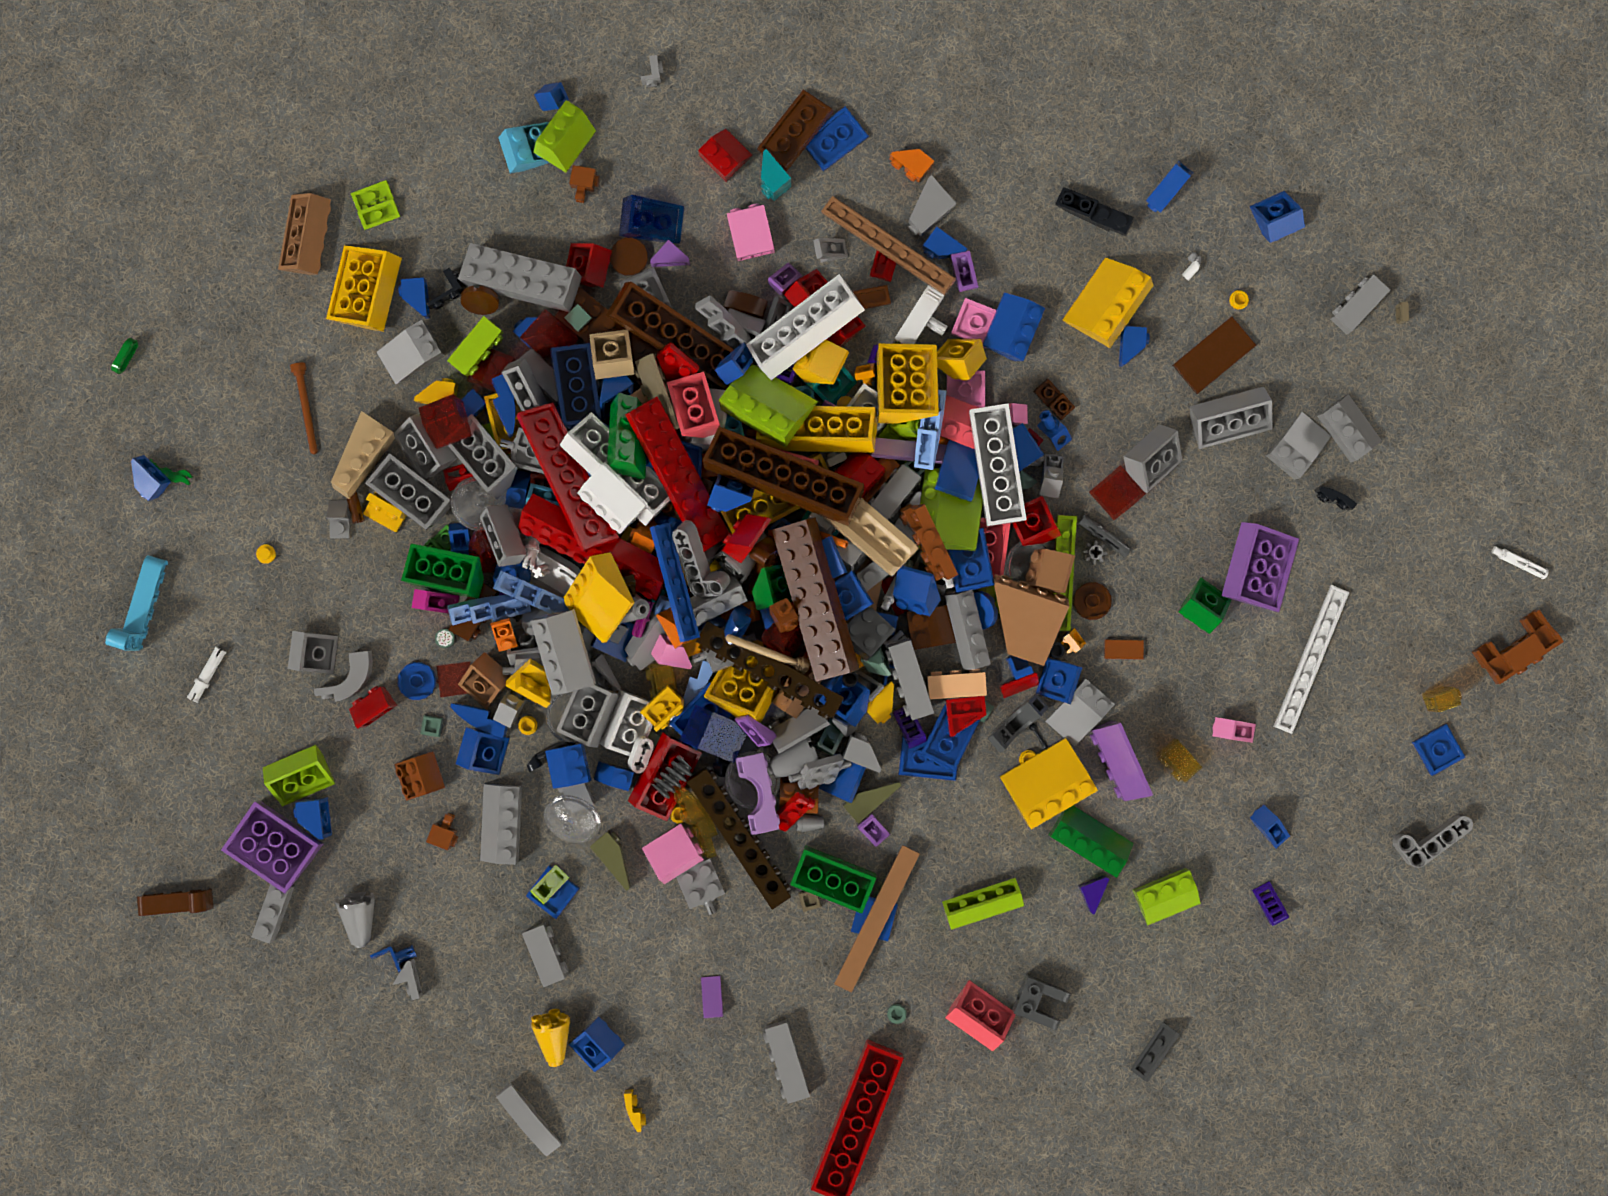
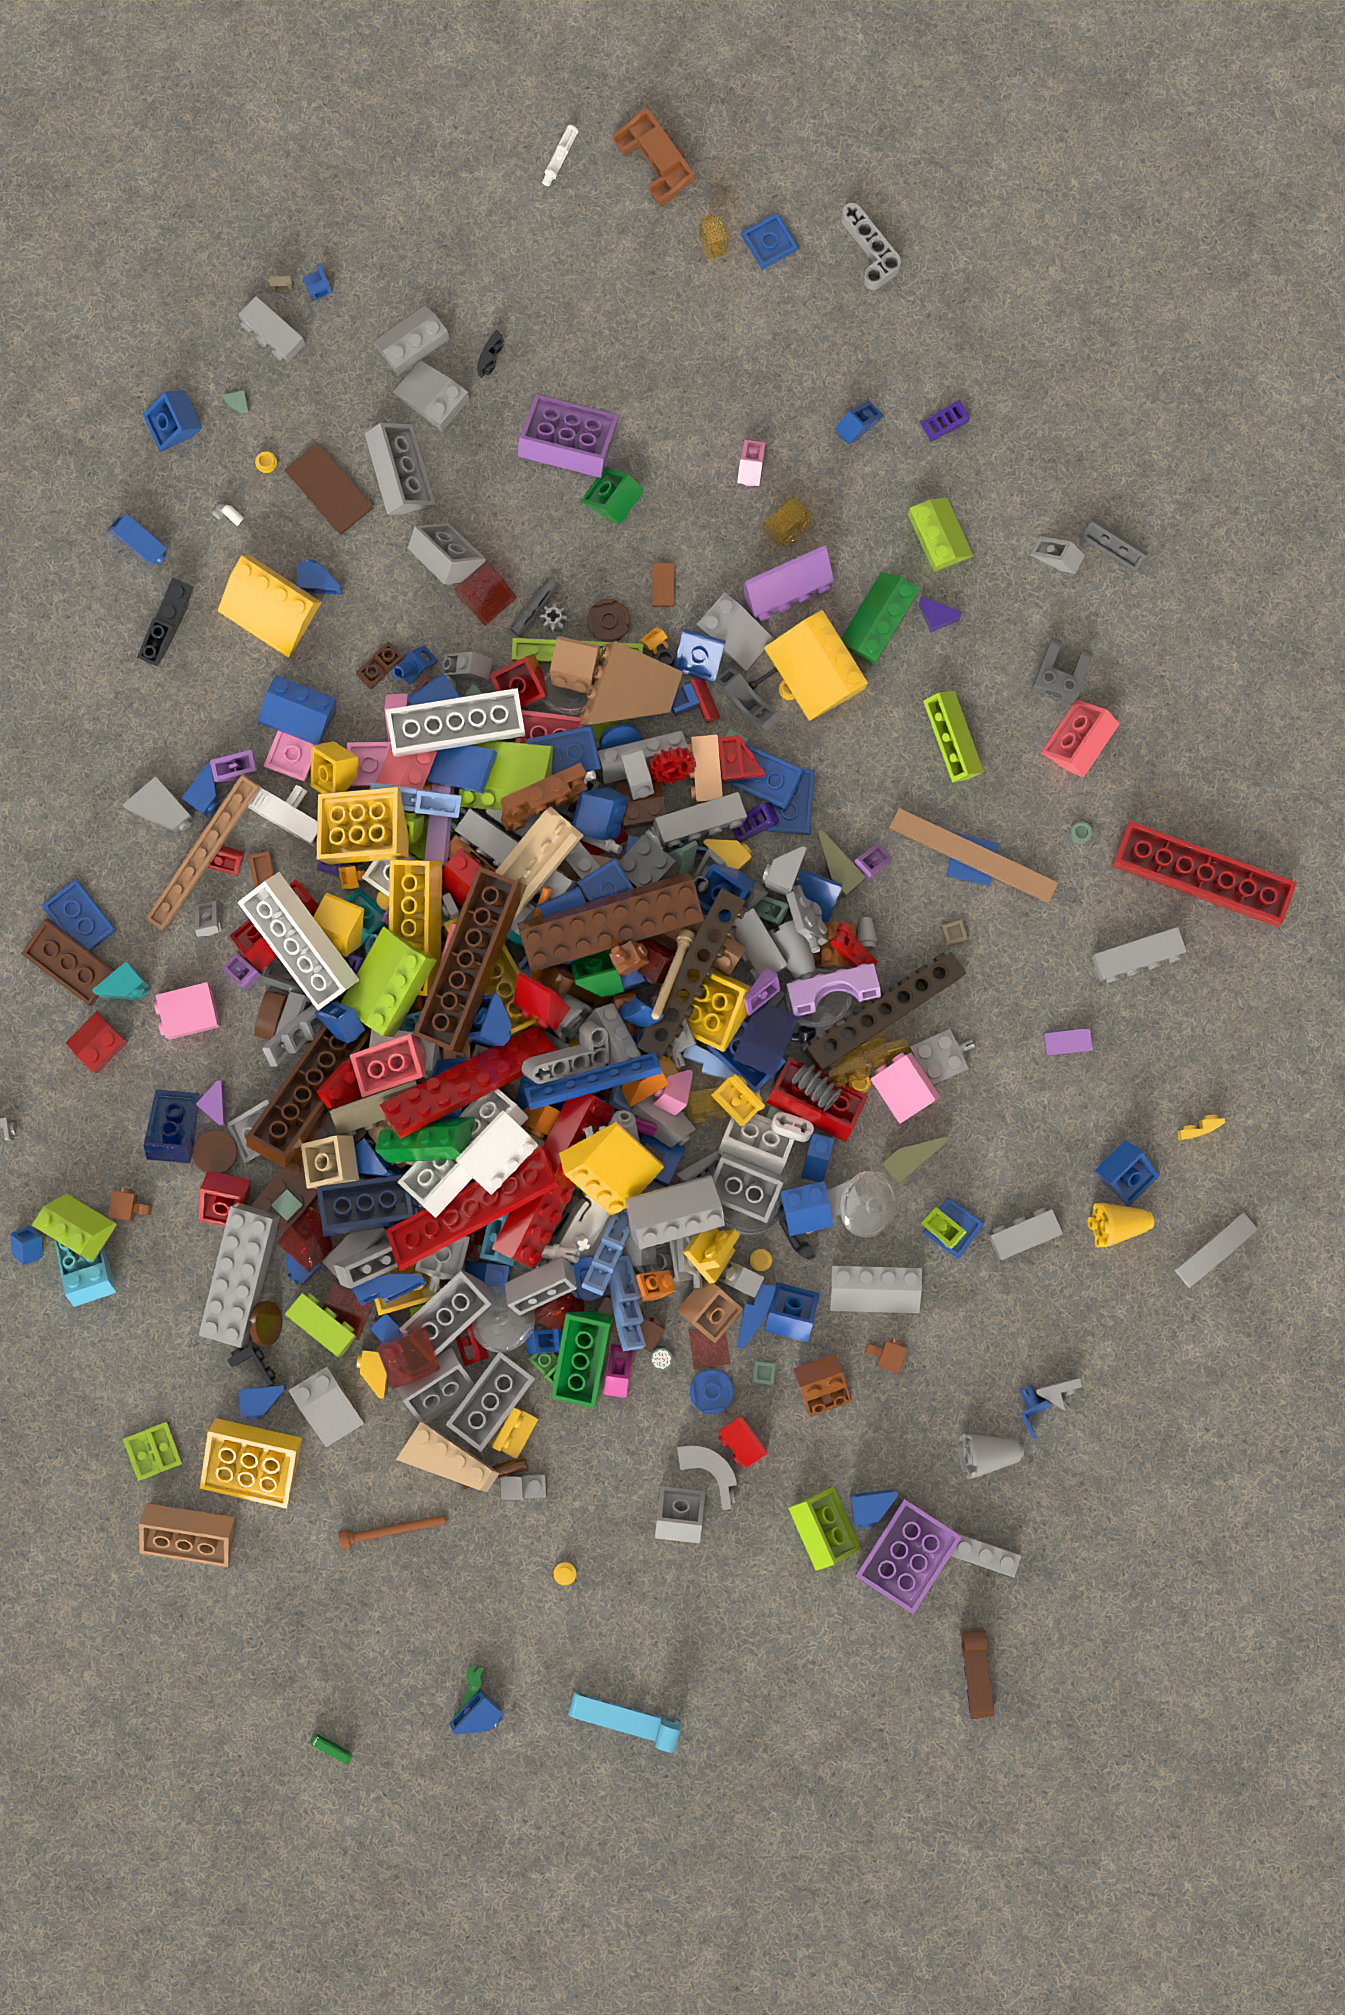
camera: 90 degrees left, 5 degrees down
(206, 674) = (708, 1641): white pin -> none
(833, 879) = (930, 904): green slope -> none
(914, 161) = (108, 823): orange slope -> none
(951, 624) = (637, 773): none -> light grey slope
(958, 655) = (672, 765): none -> red gear
(1147, 1001) = (1058, 554): none -> light grey slope
(1294, 274) = (237, 401): none -> sand green tile
(1311, 659) = (671, 379): white tile -> none
(1401, 344) = (317, 284): none -> blue panel

